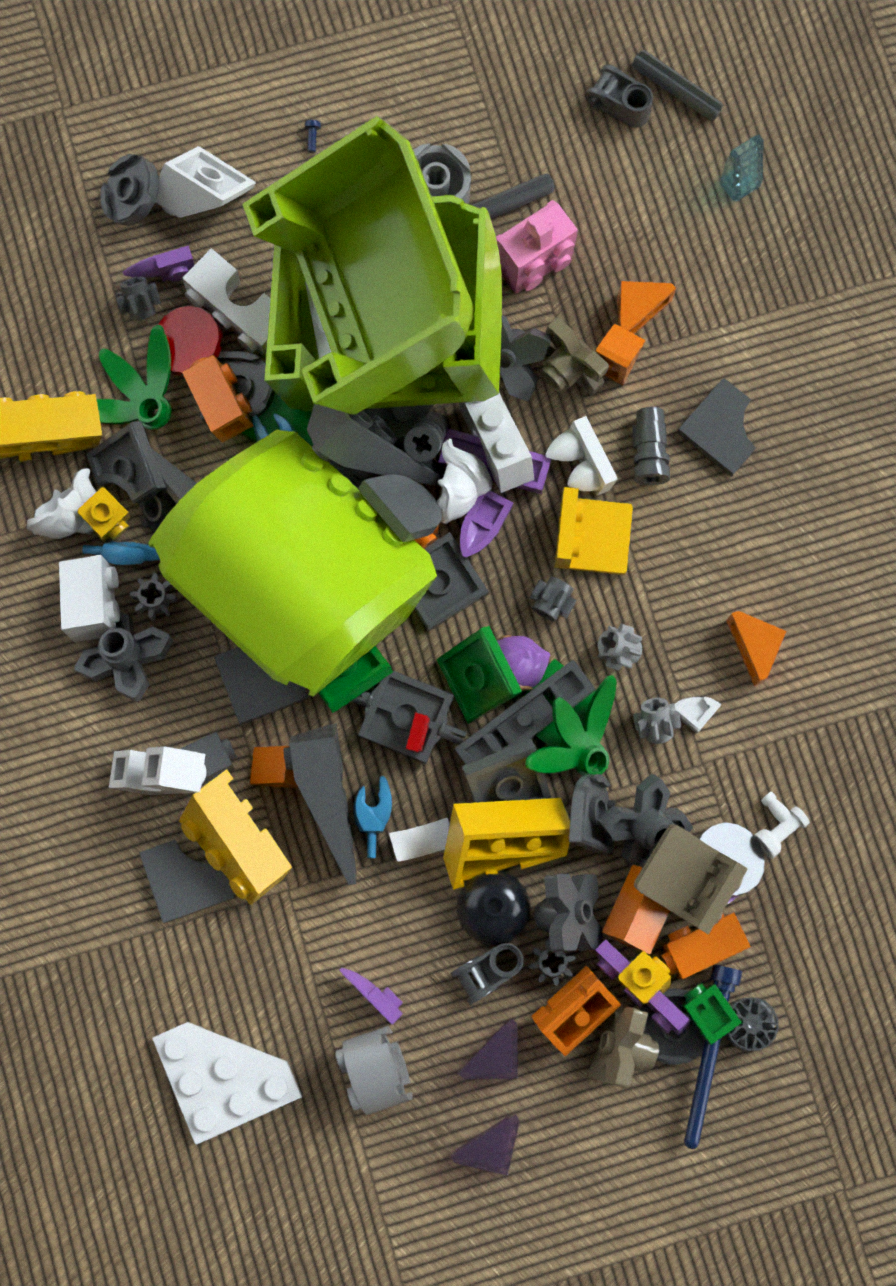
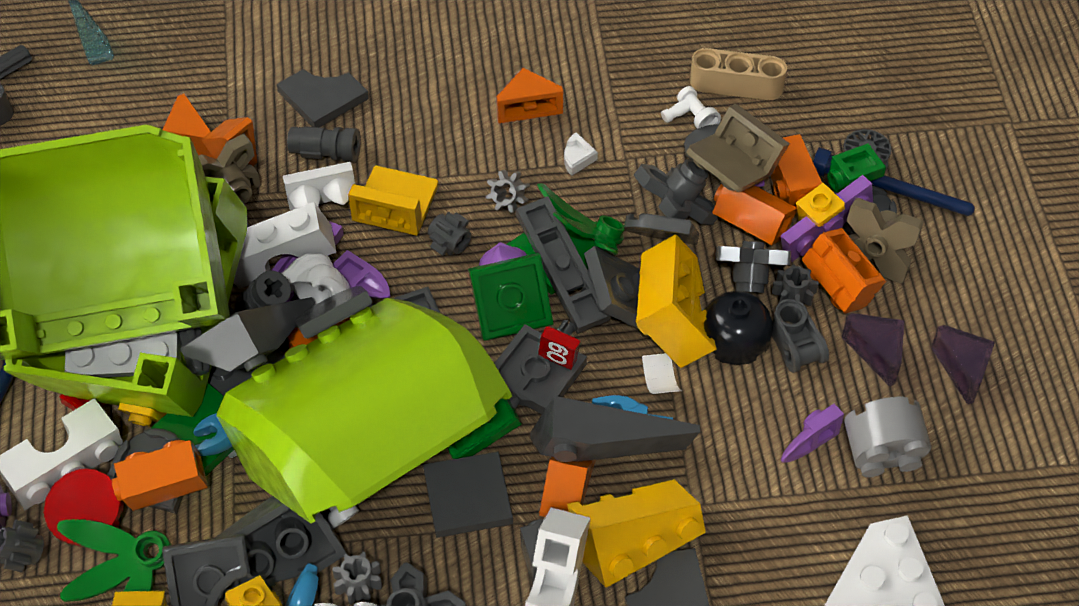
camera: 75 degrees left, 25 degrees down
(657, 720) = (582, 174): light grey gear -> none
(847, 852) = (738, 74): none -> tan beam

